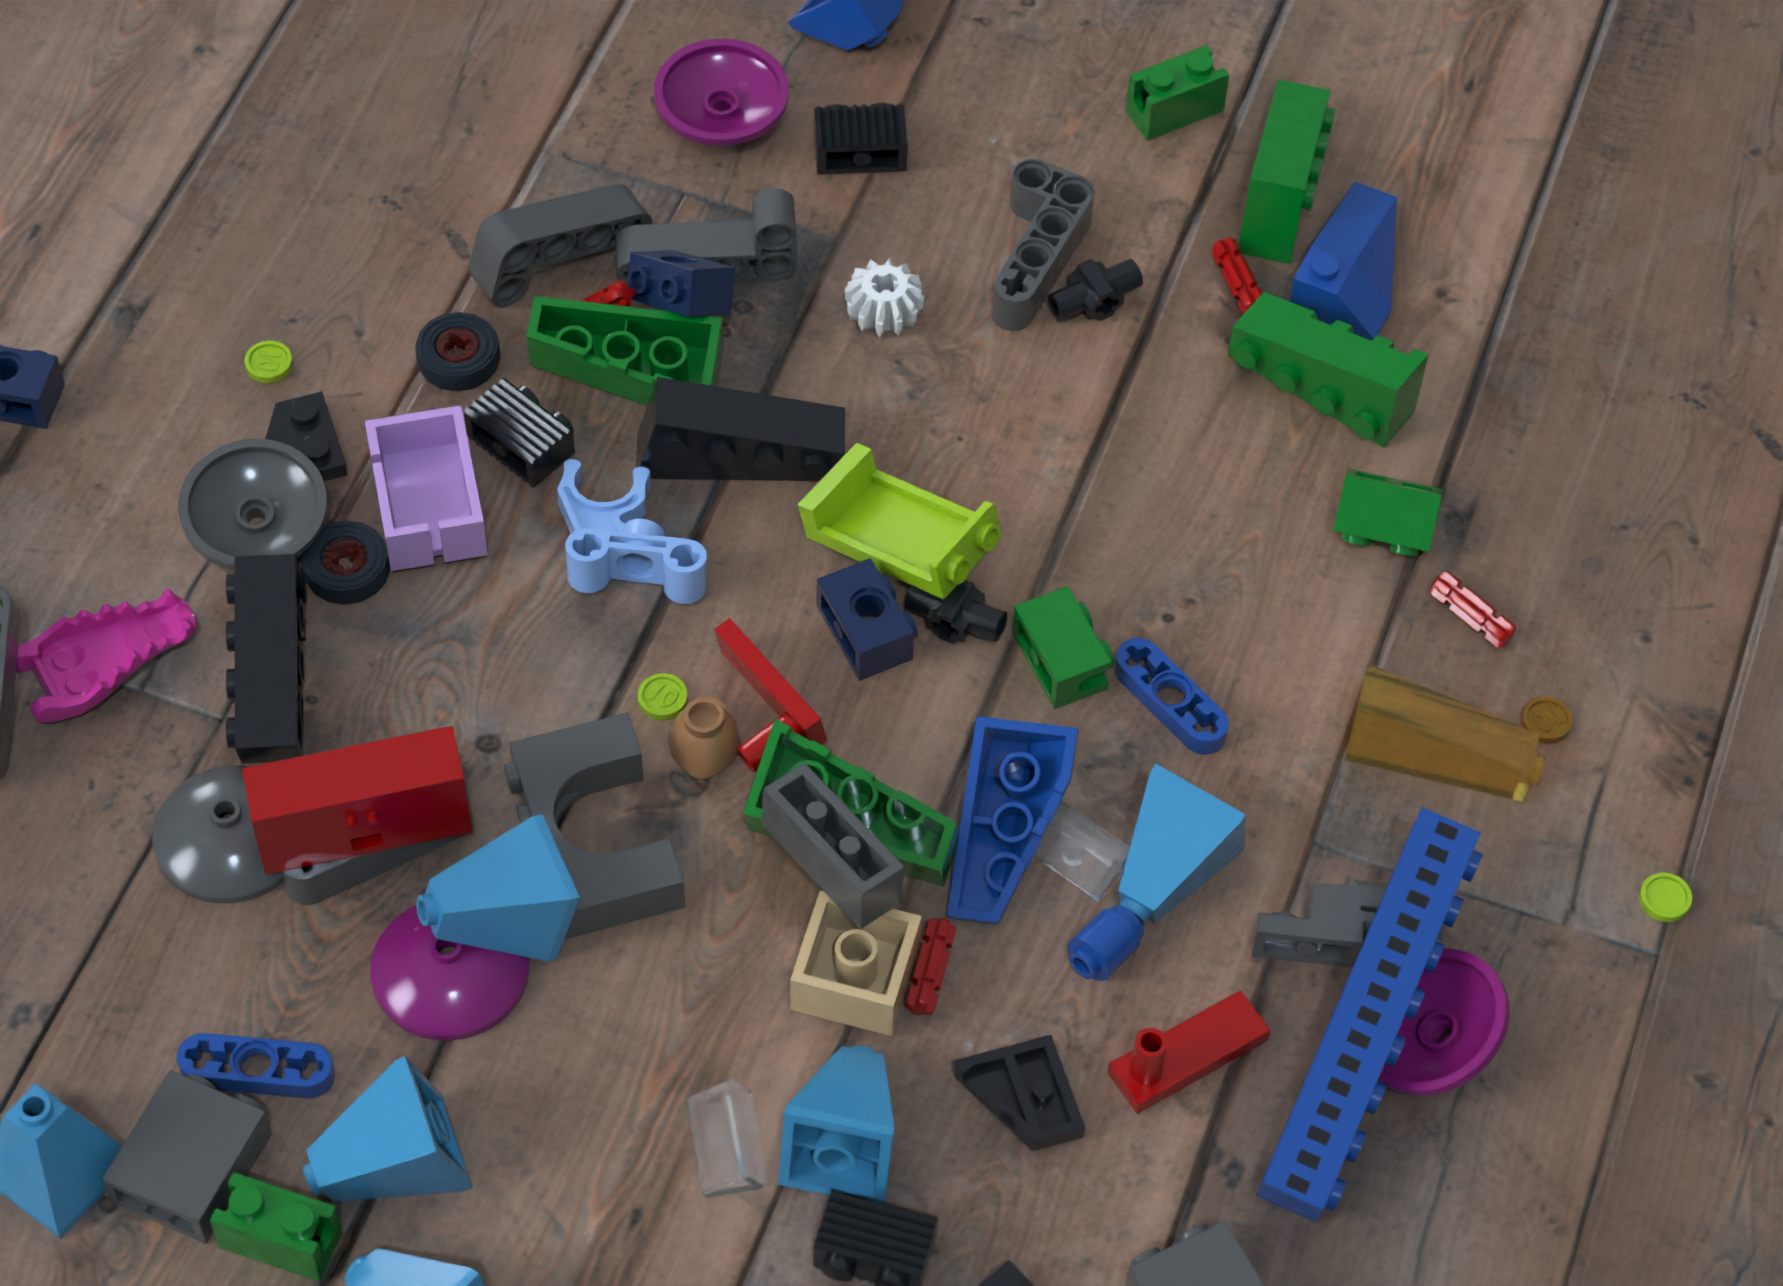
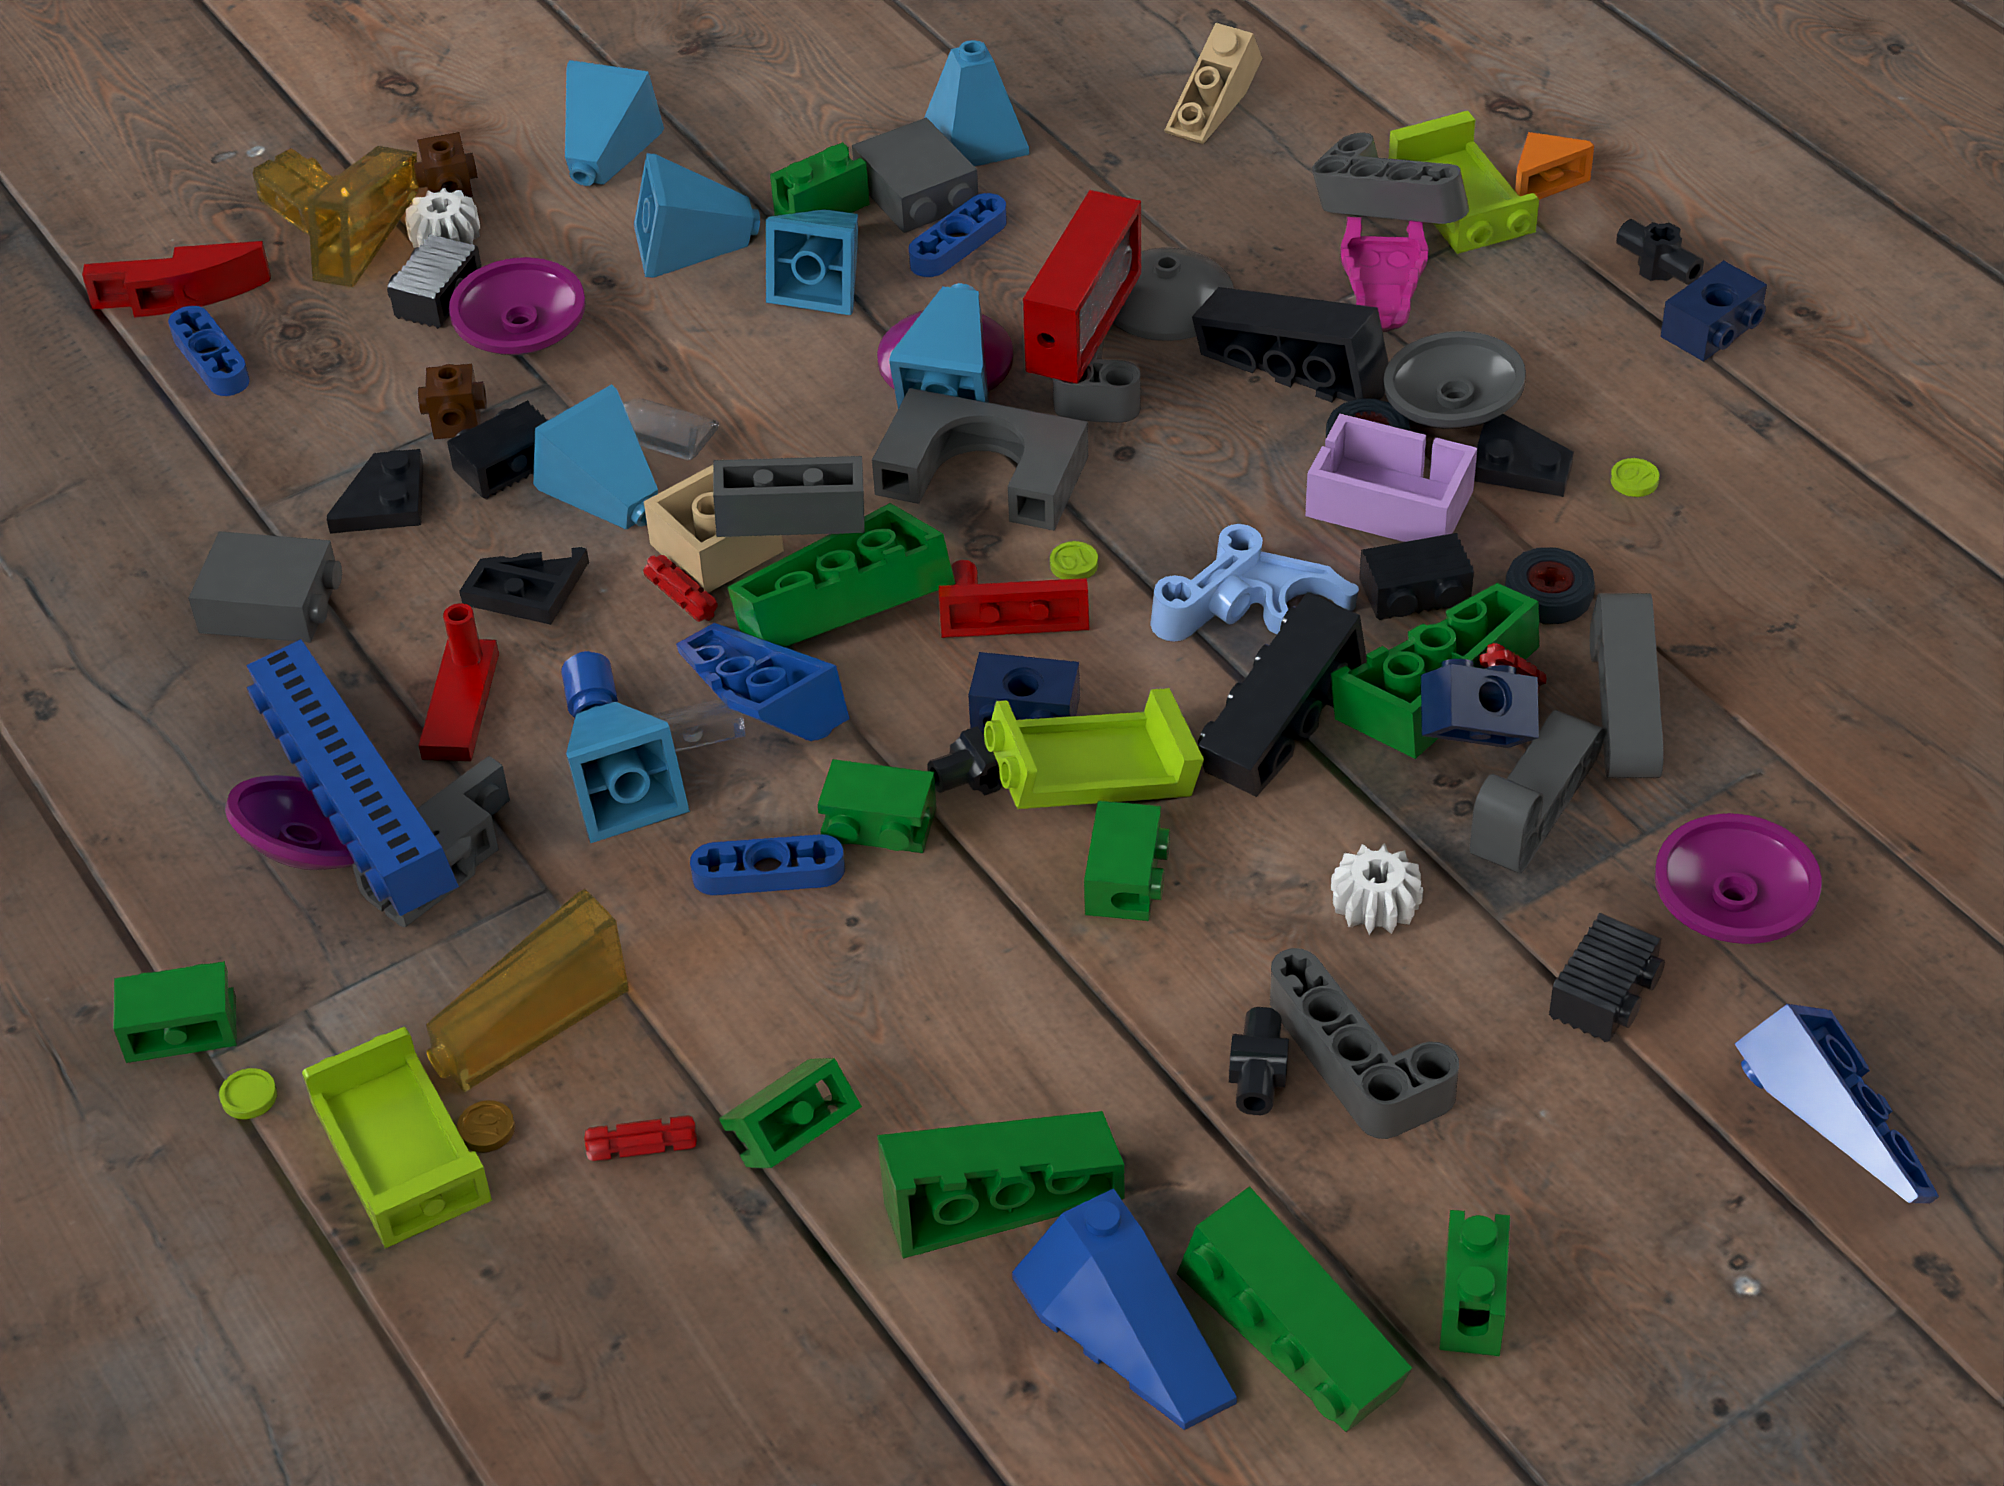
camera: 130 degrees right, 10 degrees down
(704, 737) = (1010, 556): medium nougat piece -> none
(984, 458) = (1124, 860): none -> green brick
(1236, 272) = (1175, 1197): red axle -> none
(1617, 751) = (395, 1137): none -> lime panel
(1662, 986) = (174, 1012): none -> green brick

